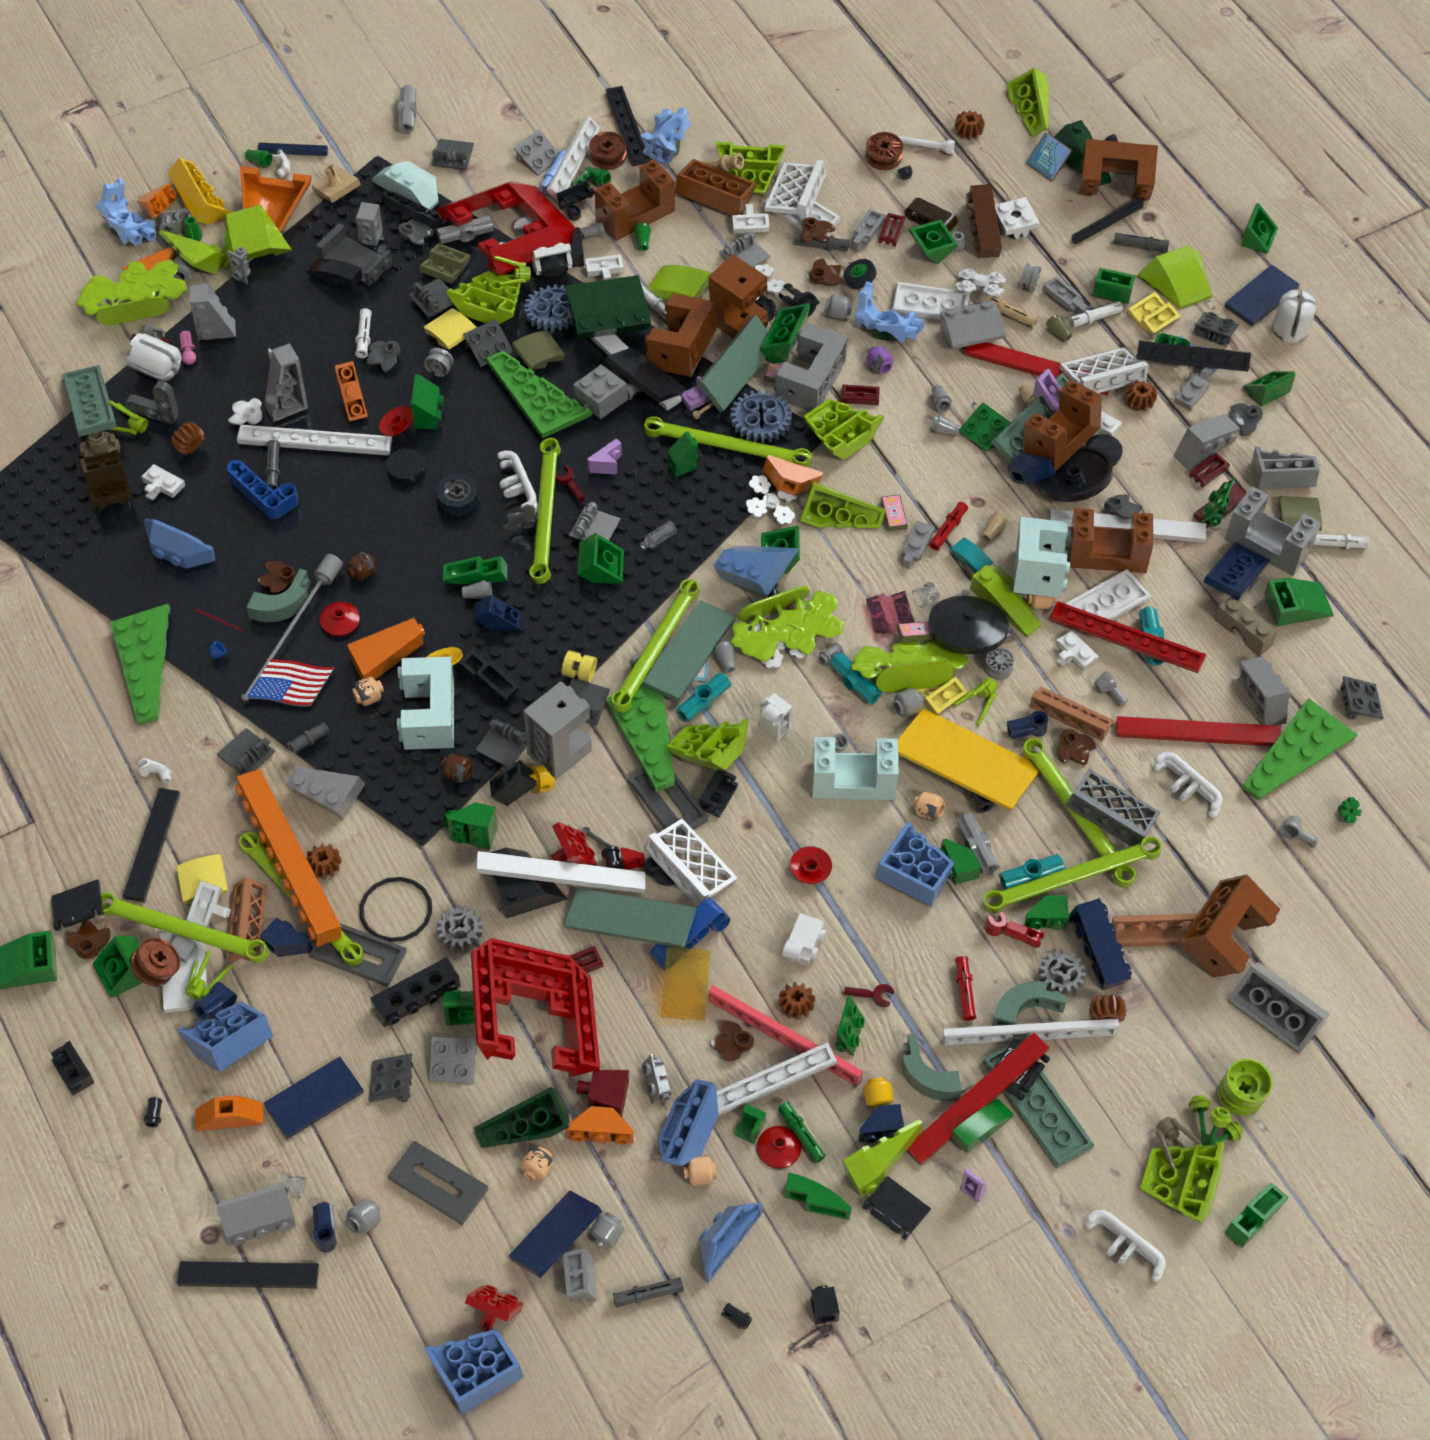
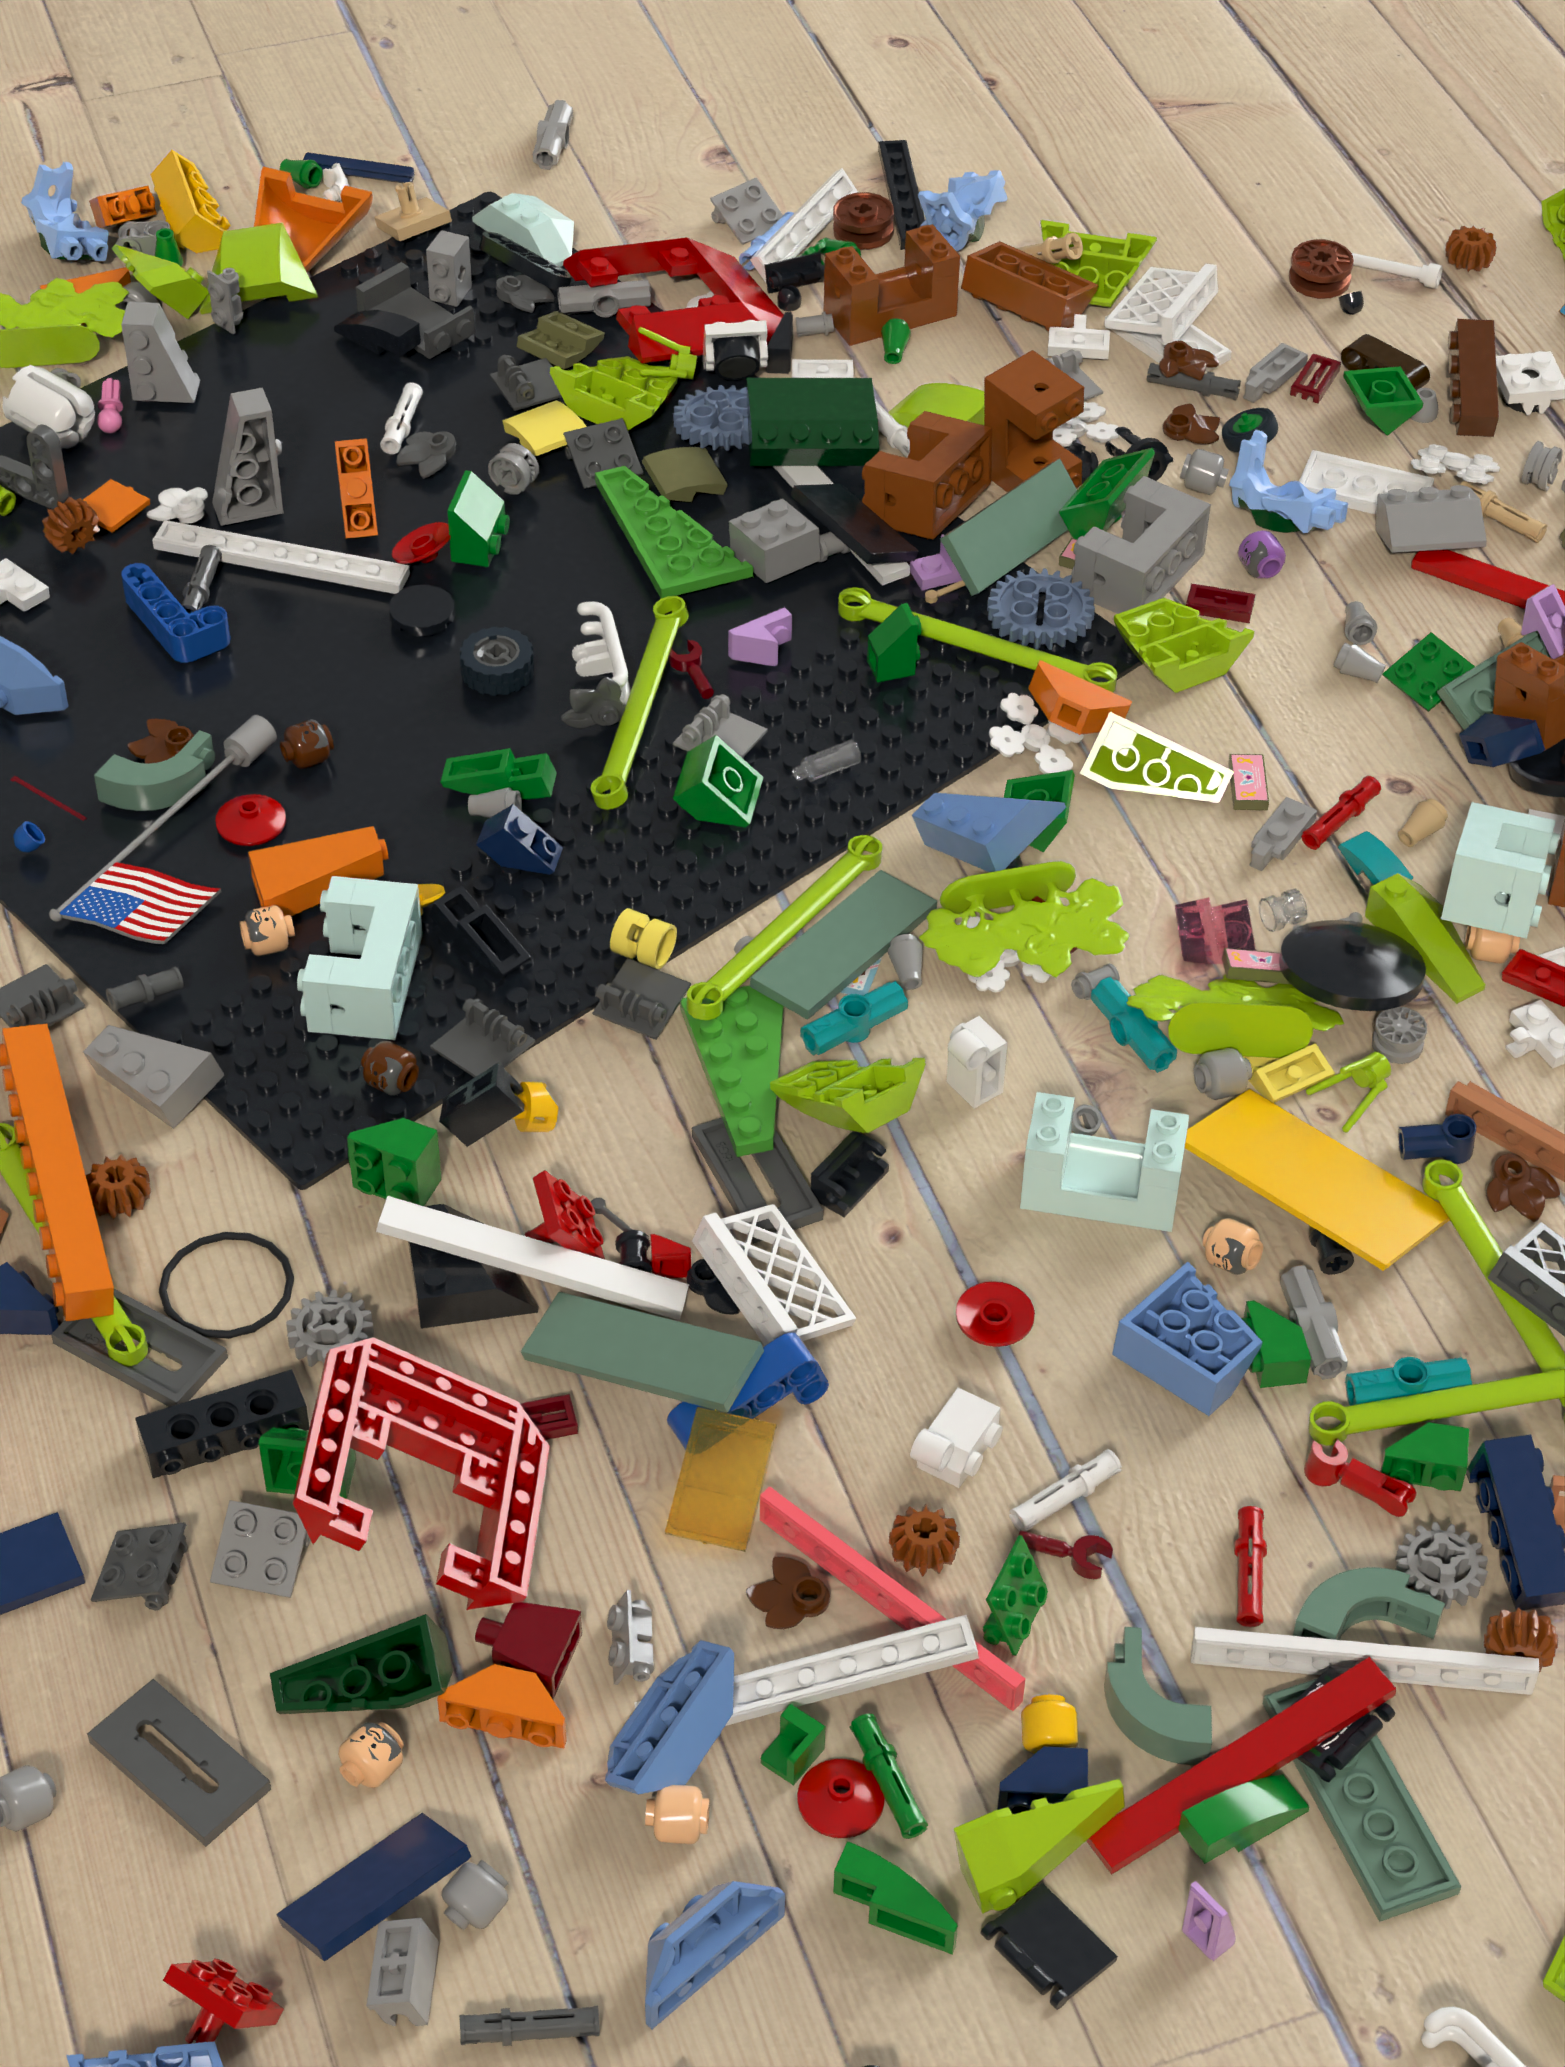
camera: 10 degrees right, 10 degrees down
(206, 416) = (116, 504): none -> orange piece
(452, 154) = (610, 200): dark grey hinge -> none
(554, 730) = (566, 1027): light grey piece -> none
(870, 954) = (1078, 1482): none -> white pin

